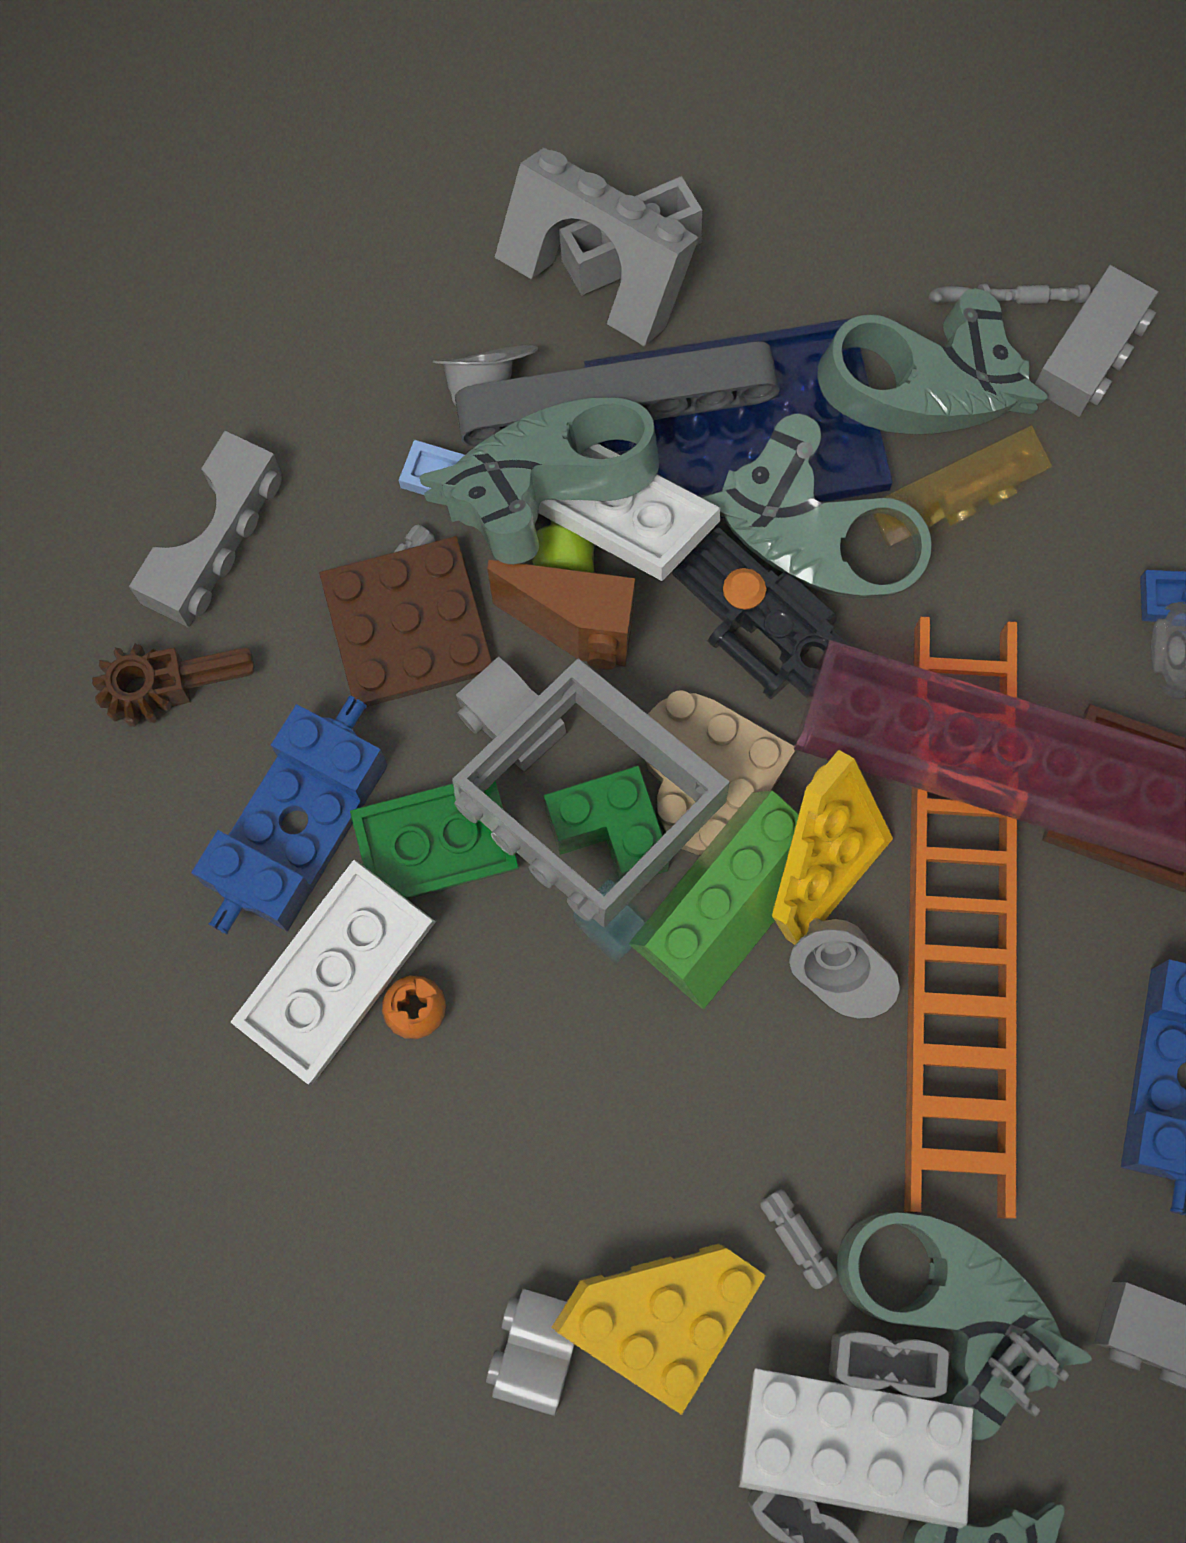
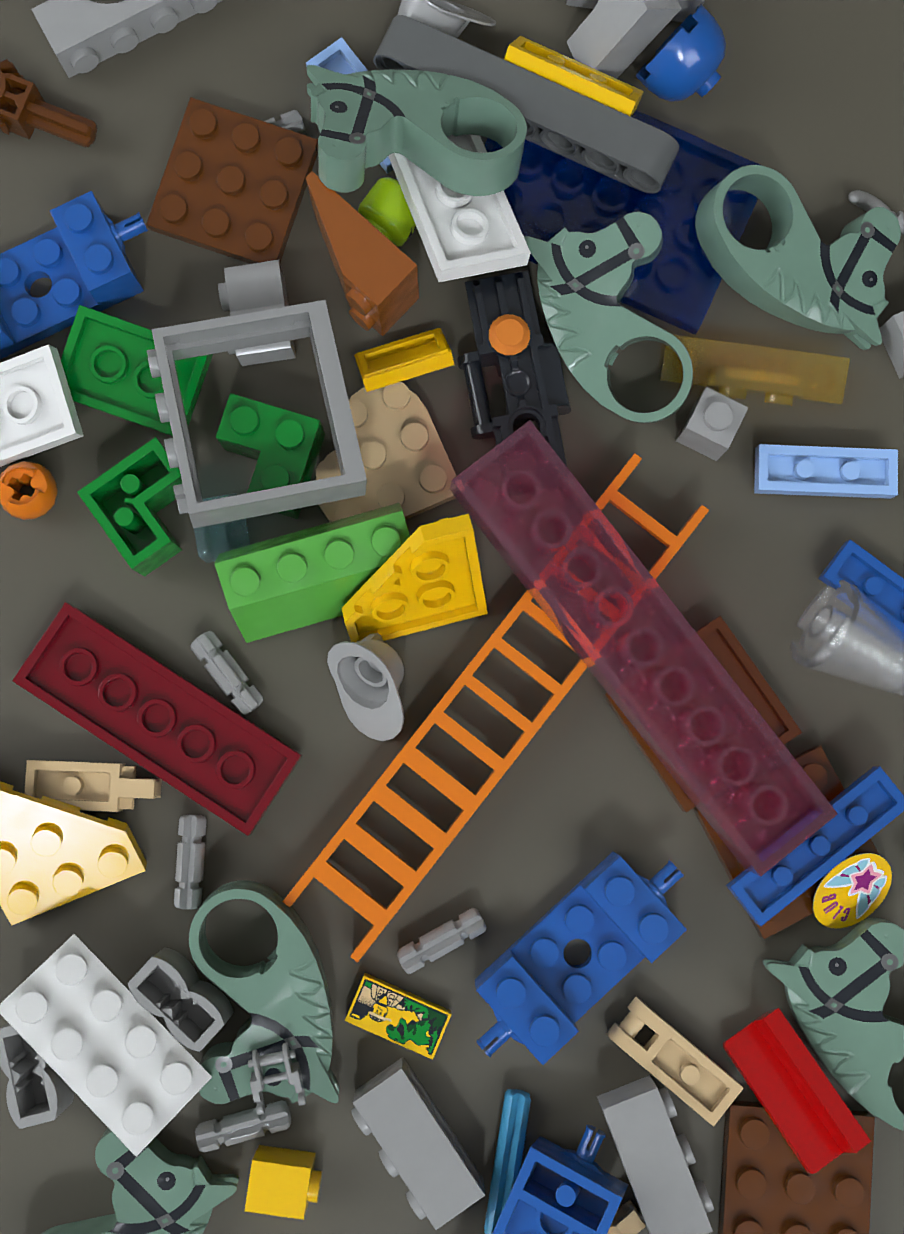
camera: 30 degrees right, 10 degrees up
(517, 955) = (128, 502): none -> green brick
(640, 345) = (574, 75): none -> yellow plate
(659, 1232) = (89, 784): none -> tan hinge
(665, 669) = (404, 359): none -> yellow tile
(677, 1129) = (157, 718): none -> dark red plate
(707, 1046) = (226, 672): none -> light grey axle
(718, 275) = (686, 59): none -> blue cylinder
(962, 552) = (712, 424): none -> light grey brick
(1022, 1449) = (242, 1126): none -> light grey axle
(1068, 1150) = (441, 940): none -> light grey axle
(1081, 529) = (826, 471): none -> light blue plate
(1082, 1246) = (398, 1016): none -> tile
(1098, 1470) = (282, 1182): none -> yellow brick

